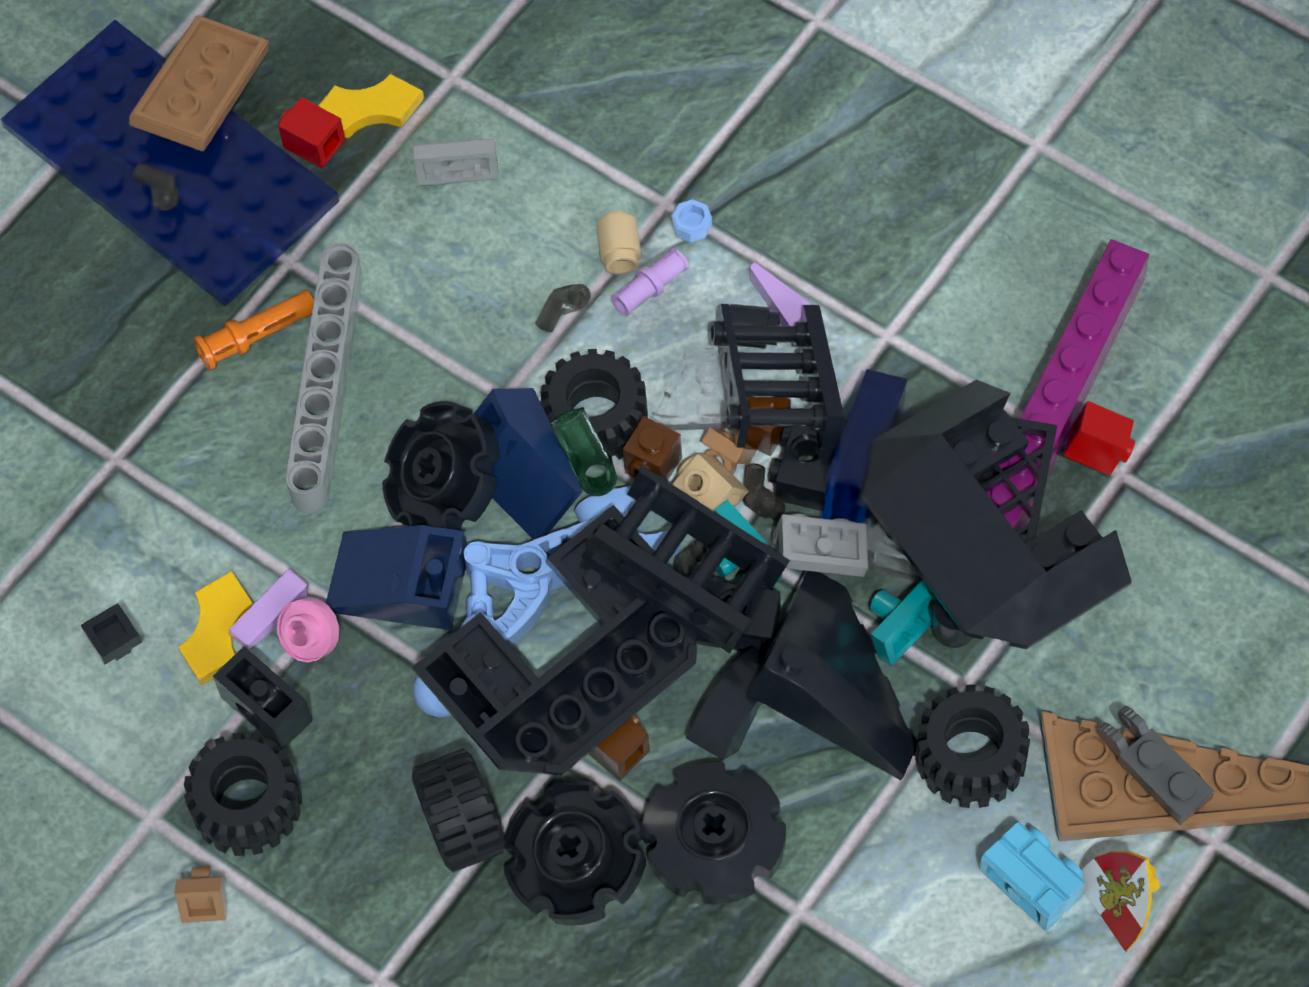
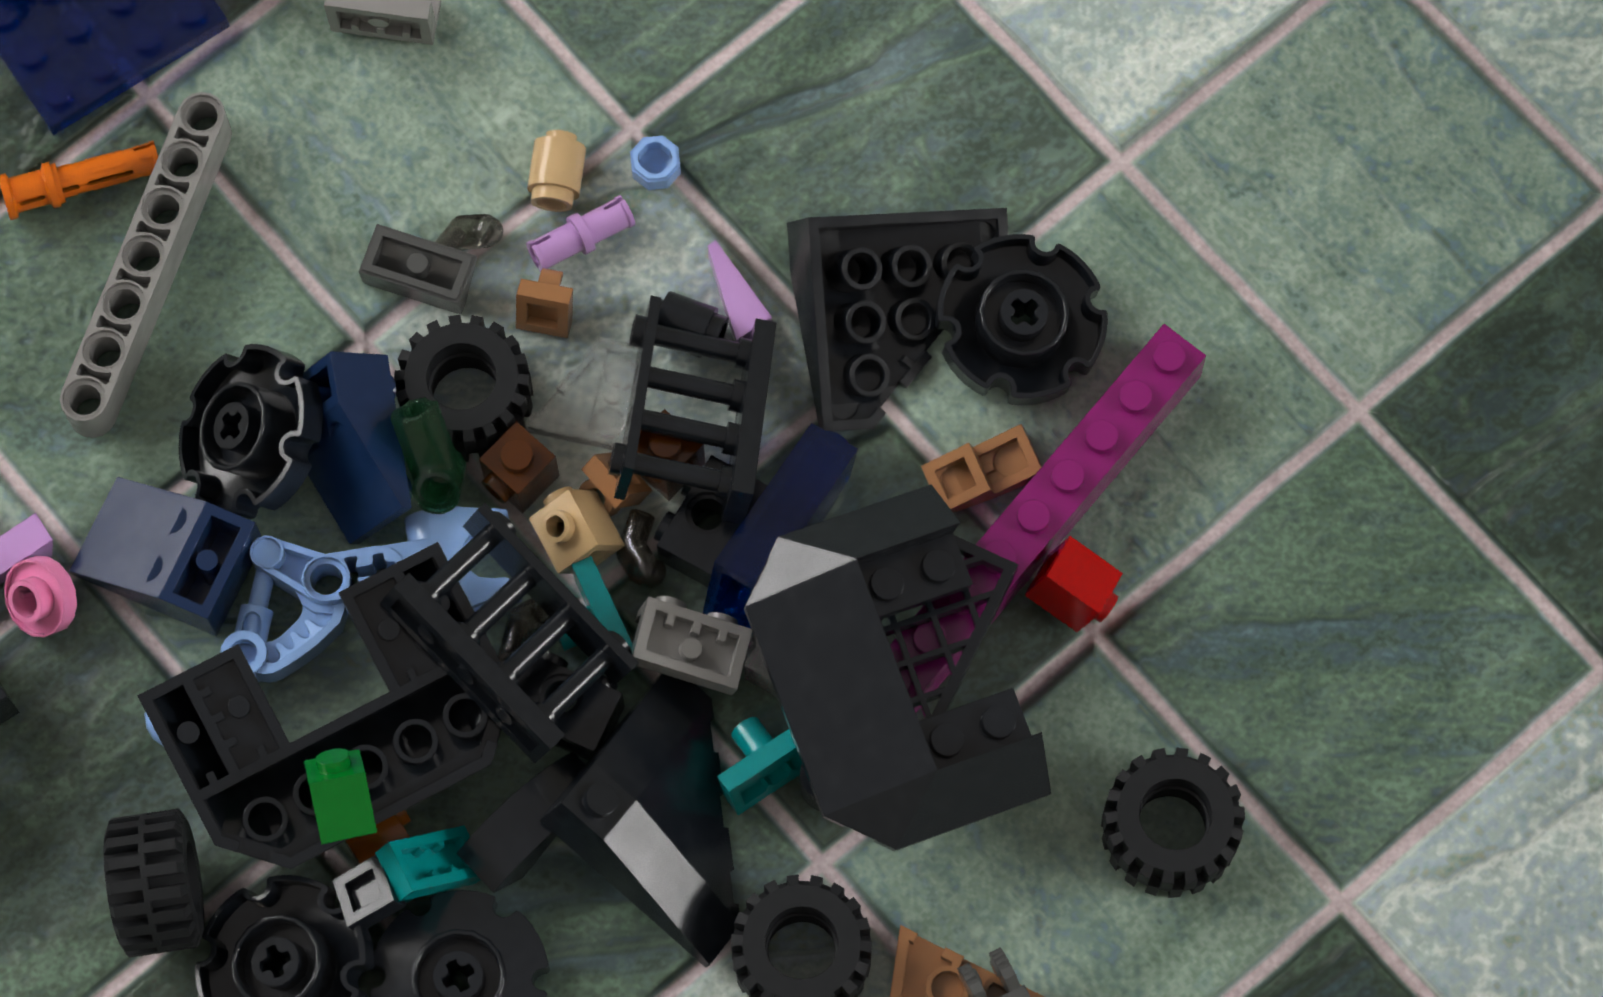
camera: 10 degrees right, 10 degrees up
(533, 333) = (418, 269): none -> dark grey slope
(590, 702) = (340, 795): none -> green brick
(627, 779) = (366, 894): none -> tile
(638, 336) = (545, 305): none -> medium nougat tile
(664, 752) = (426, 863): none -> teal tile
(889, 272) = (871, 299): none -> black slope
(1000, 265) = (1025, 358): none -> black piece
(1013, 372) = (983, 471): none -> medium nougat slope
(1231, 558) = (1181, 778): none -> black tyre

